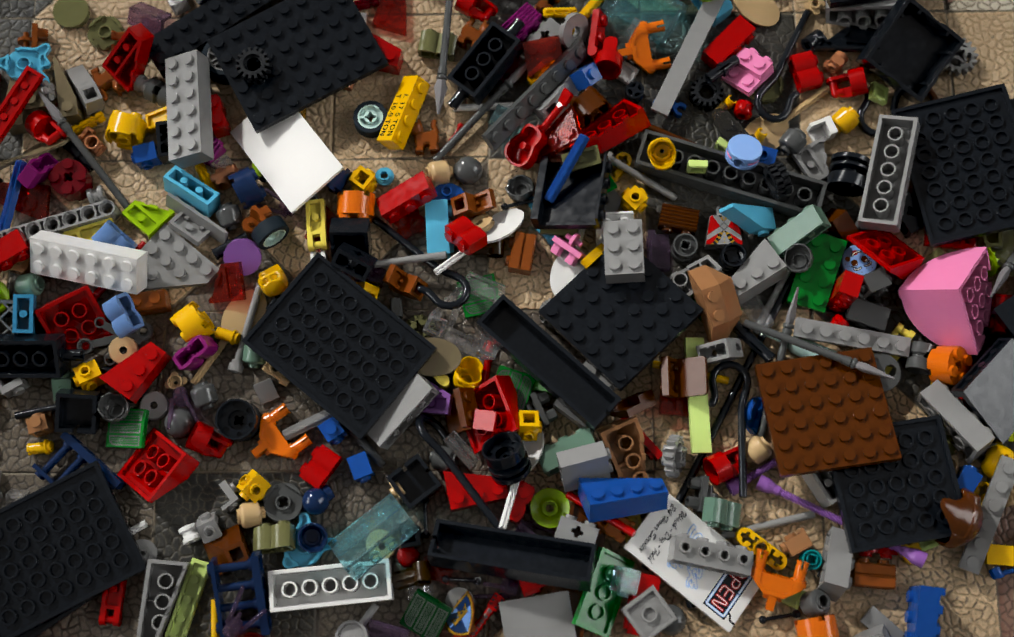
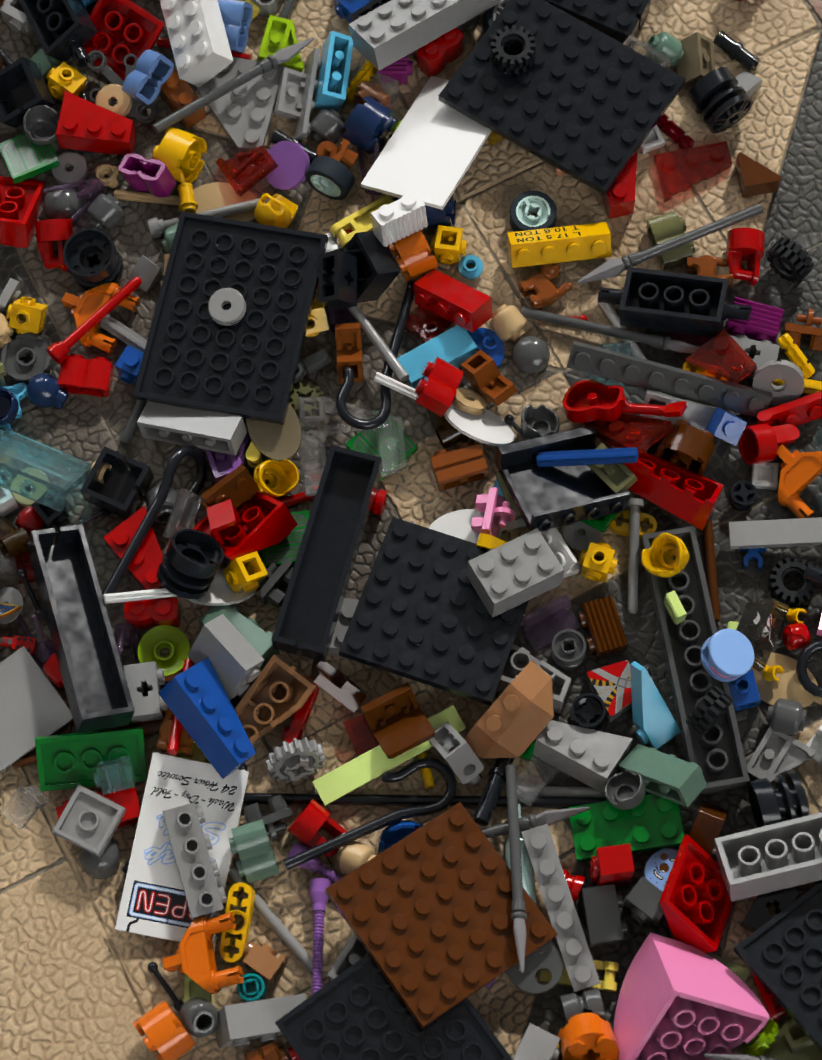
camera: 65 degrees right, 5 degrees down
(158, 220) = (269, 63): none -> dark grey piece
(295, 475) = (59, 350): none -> red piece
(332, 352) = (222, 297): none -> light grey piece
(335, 199) = (399, 219): none -> white brick
(361, 467) = (107, 418): blue brick -> none

